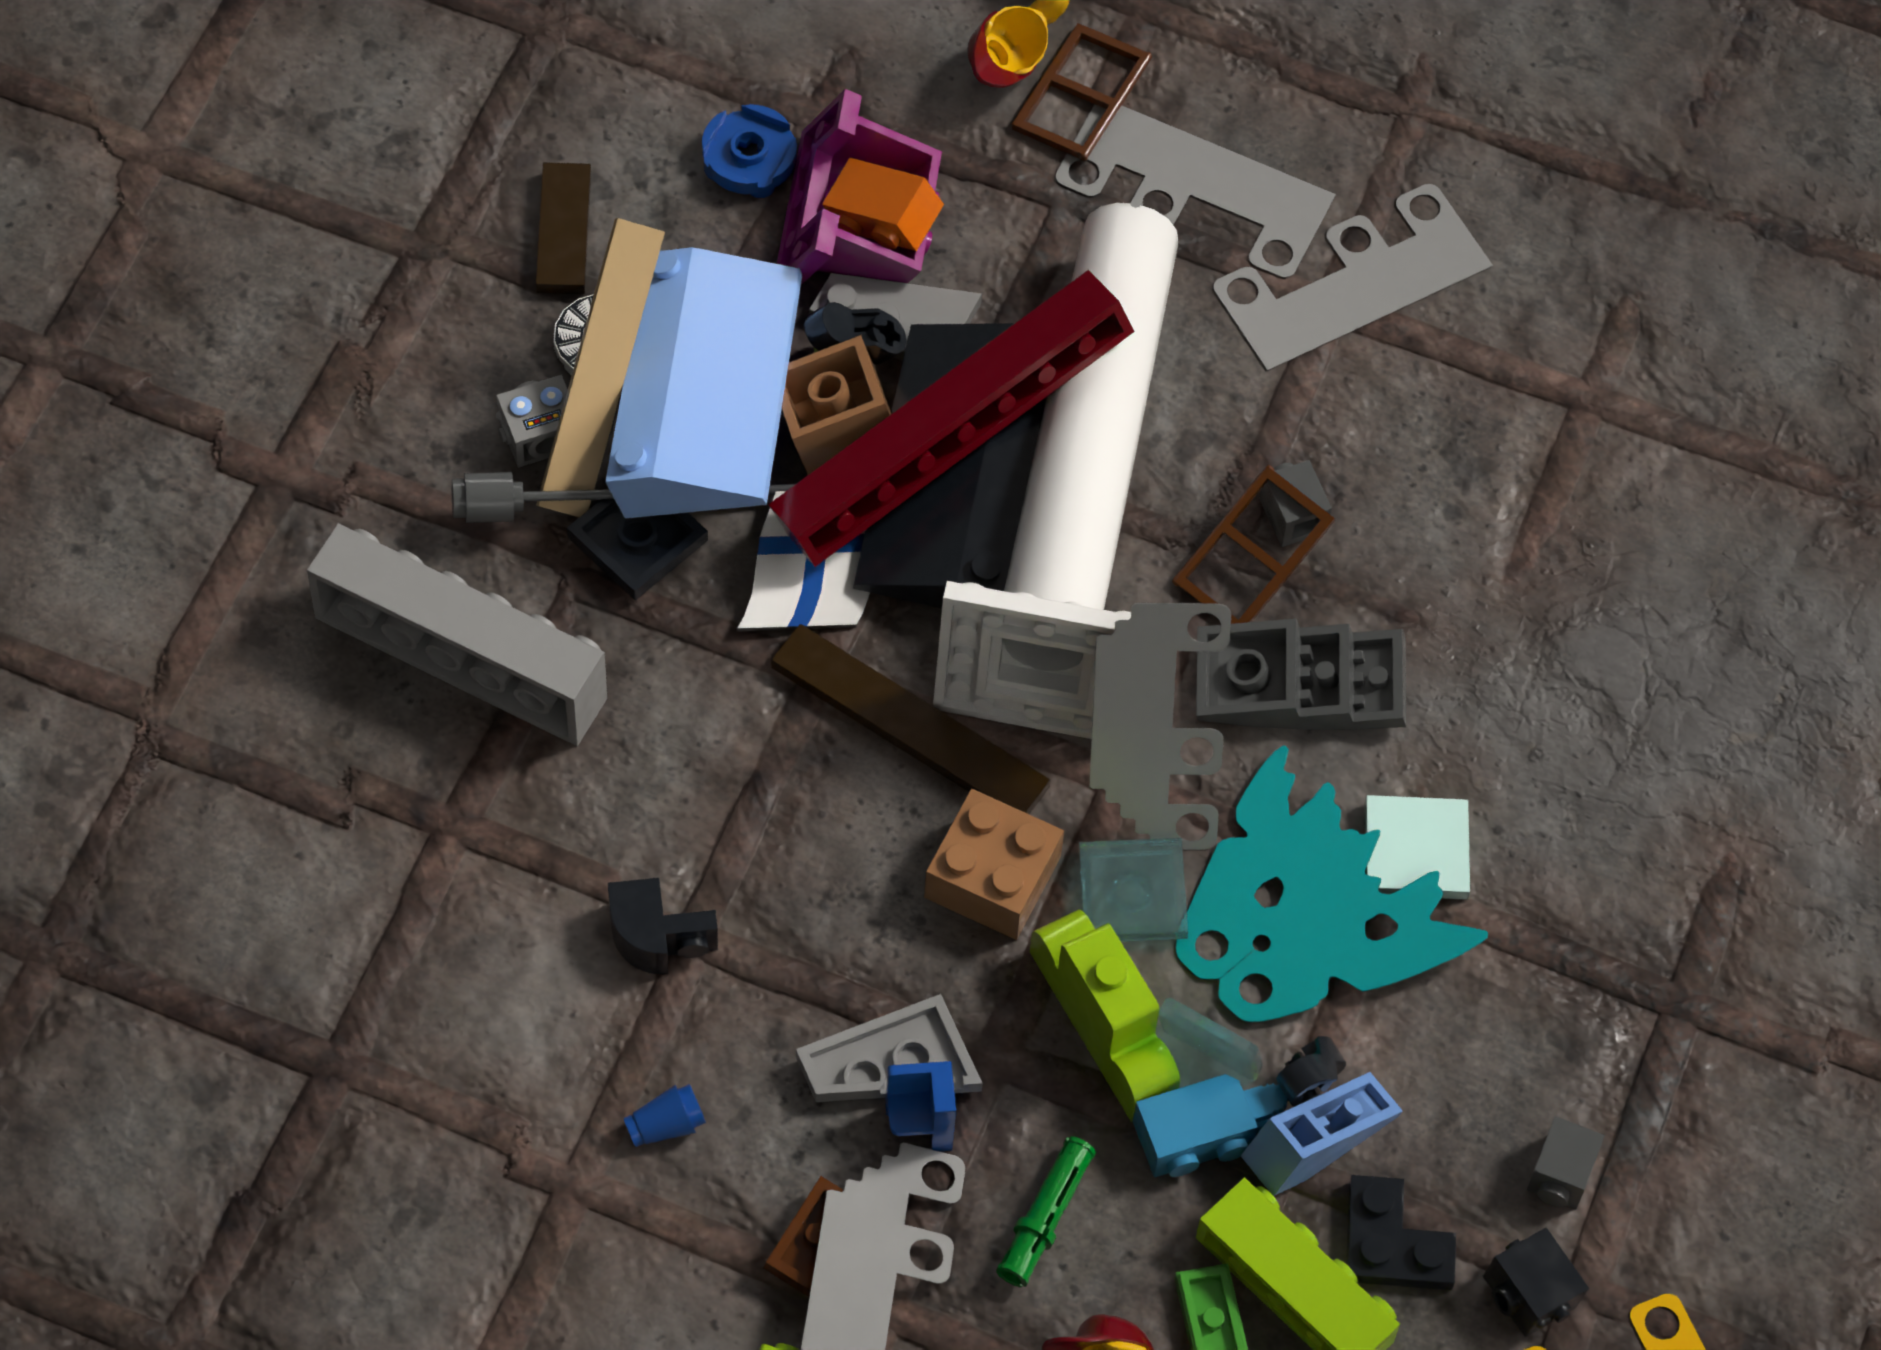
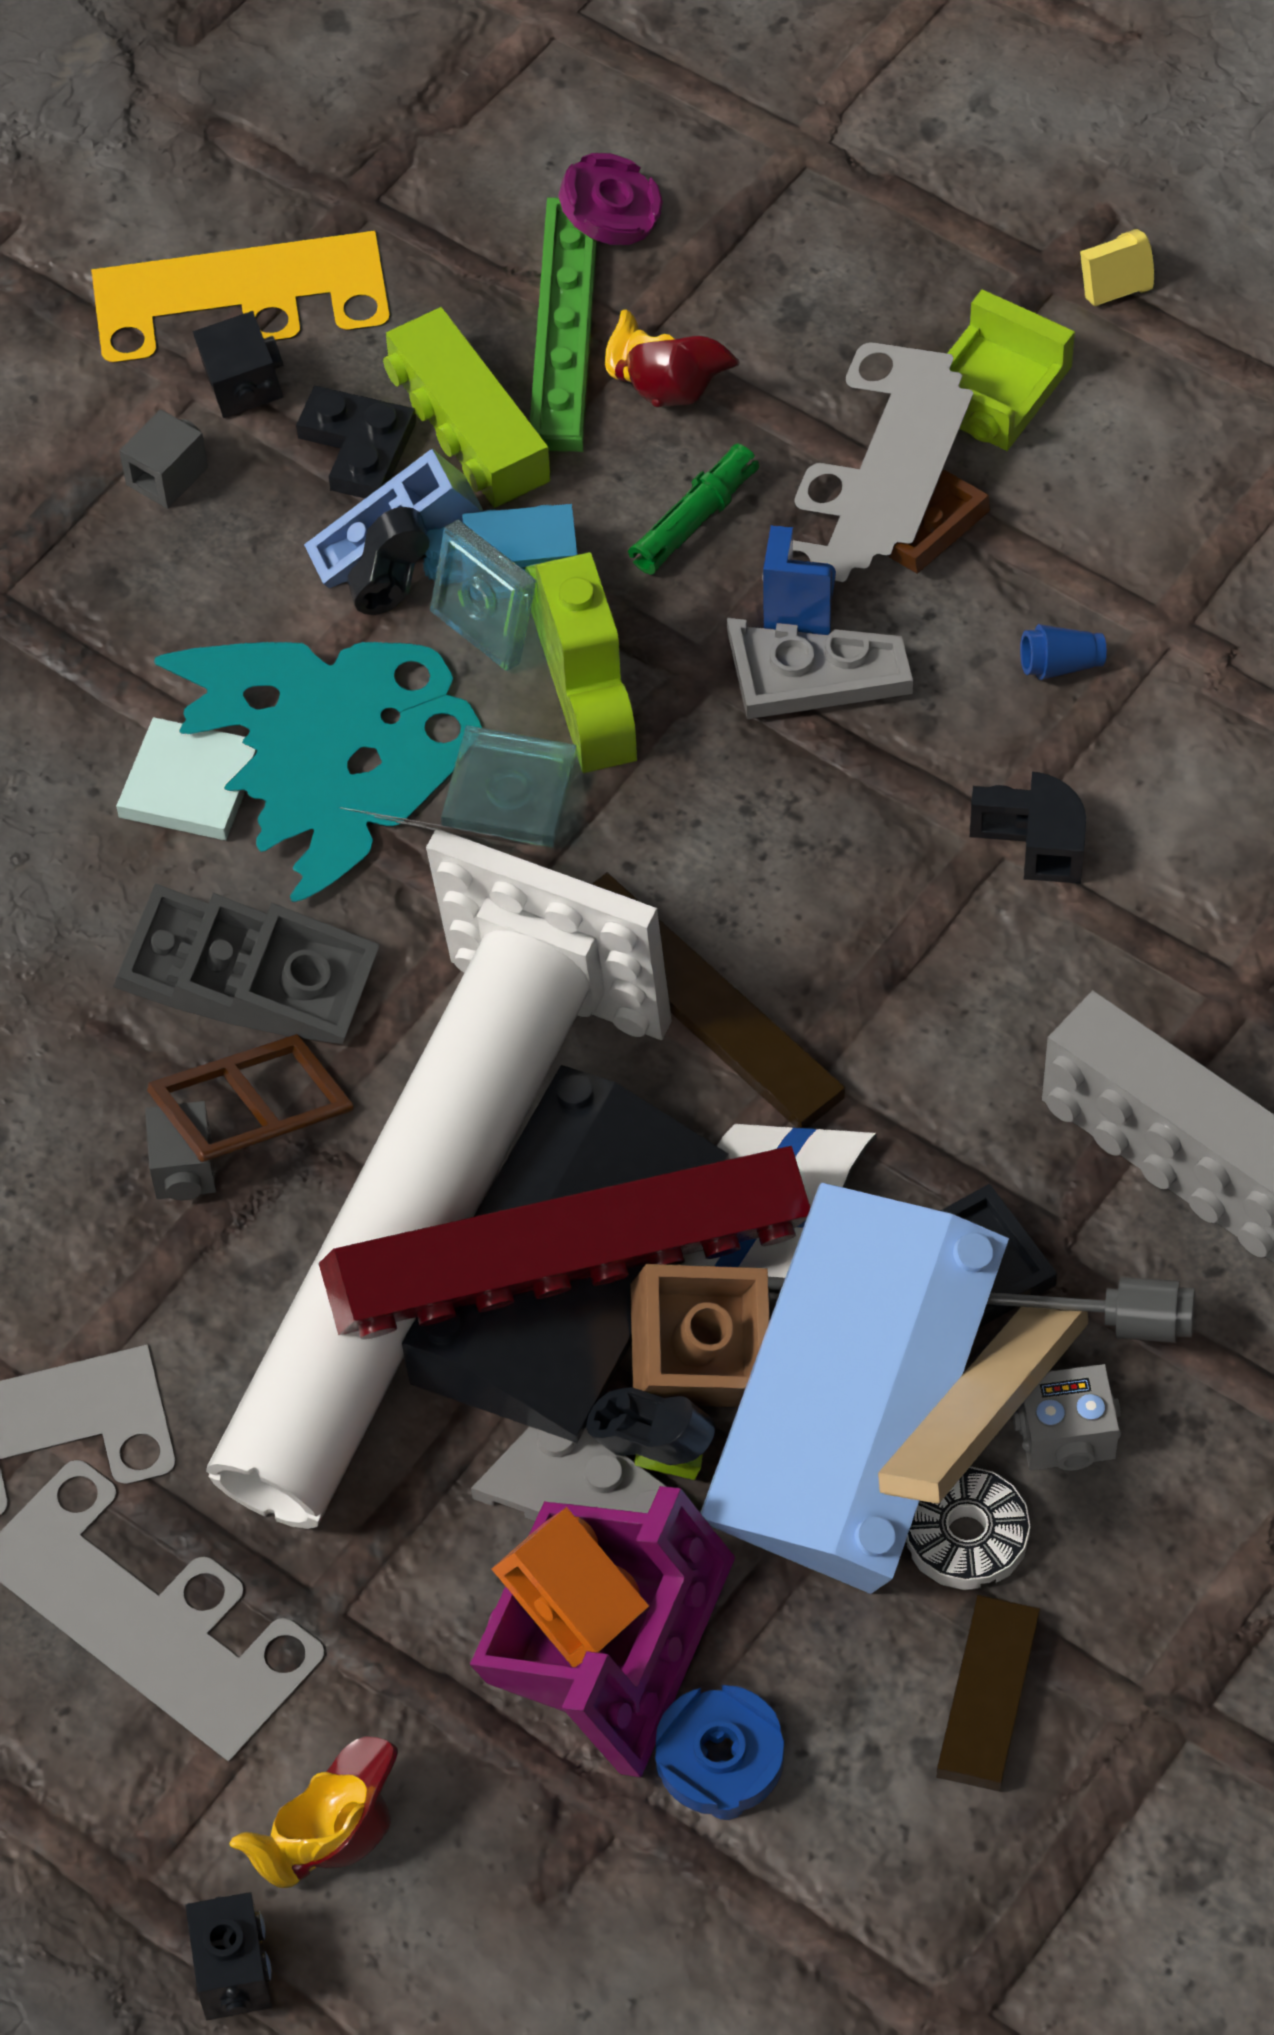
camera: 160 degrees left, 5 degrees down
(993, 864) = (653, 819): medium nougat brick -> none
(1052, 78) = (216, 1734): reddish brown window -> none

